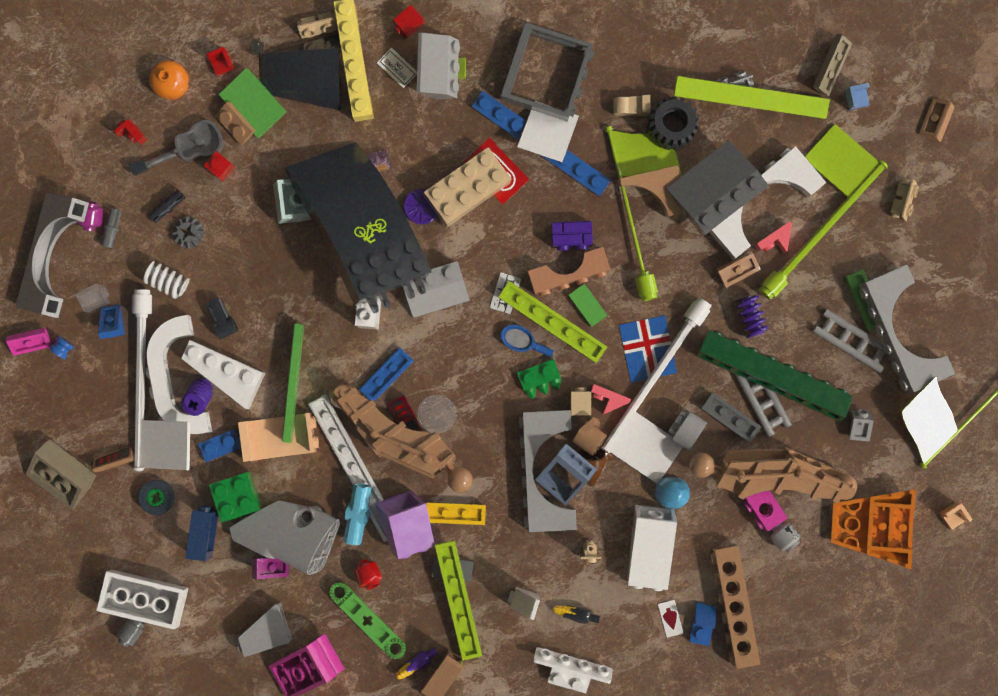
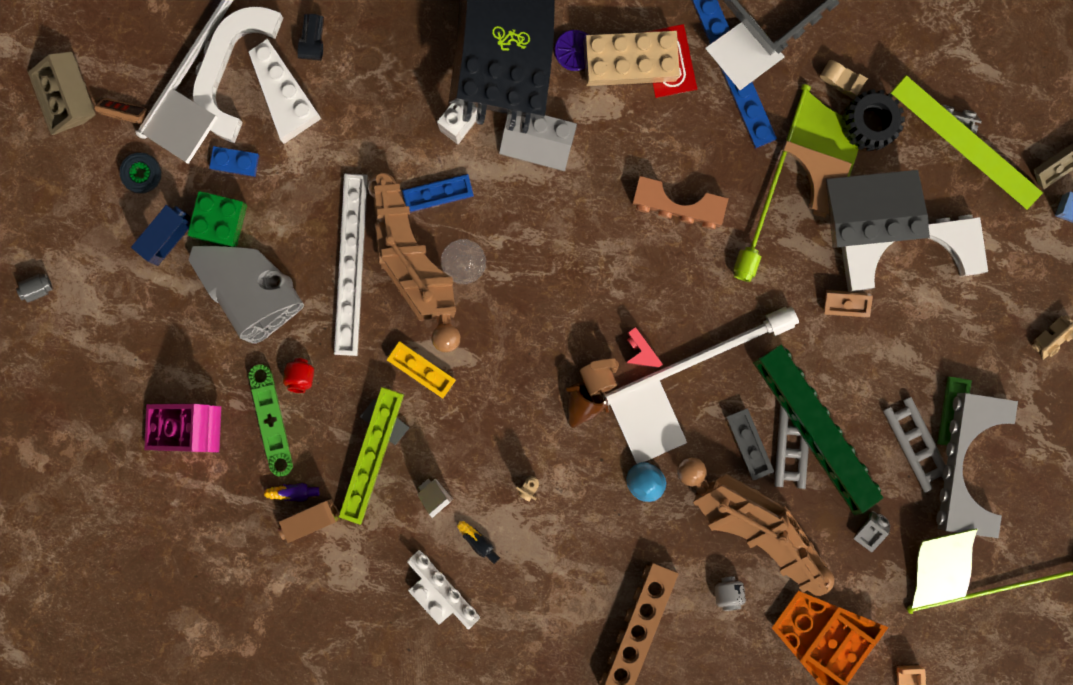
camera: 30 degrees right, 0 degrees up
(142, 599) = (65, 262): white brick -> none
(197, 397) = (240, 99): dark purple piece -> none
(264, 437) = (294, 188): light nougat panel -> none
(265, 633) = (164, 370): light grey slope -> none
(269, 568) = (206, 309): magenta slope -> none
(293, 380) = (342, 144): bright green tile -> none
(357, 514) = (325, 310): medium azure piece -> none
(403, 412) = (432, 238): slope -> none
(406, 524) = (366, 349): medium lavender slope -> none
(497, 303) = (604, 185): white sticker -> none
(521, 340) = (591, 241): piece -> none
(538, 377) = (586, 288): green plate -> none
(542, 513) = (552, 337): light grey arch -> none
(552, 322) = (632, 242): lime plate -> none
(572, 234) = (705, 168): dark purple brick -> none
(572, 463) = (567, 393): sand blue window -> none
(580, 402) = (611, 337): tan brick -> none
(587, 305) = (677, 247): bright green tile -> none
(644, 347) = (709, 322): sticker -> none
(651, 547) = (592, 522): white slope -> none
(670, 618) = (567, 604): white sticker -> none
(687, 429) = (699, 428): light grey piece -> none
(702, 624) = (595, 629): blue slope -> none
(752, 316) = (832, 357): dark purple piece -> none
(772, 517) = (726, 567): dark pink brick -> none
(780, 236) = (909, 297): coral slope -> none
(850, 171) = (1018, 274): lime flag -> none

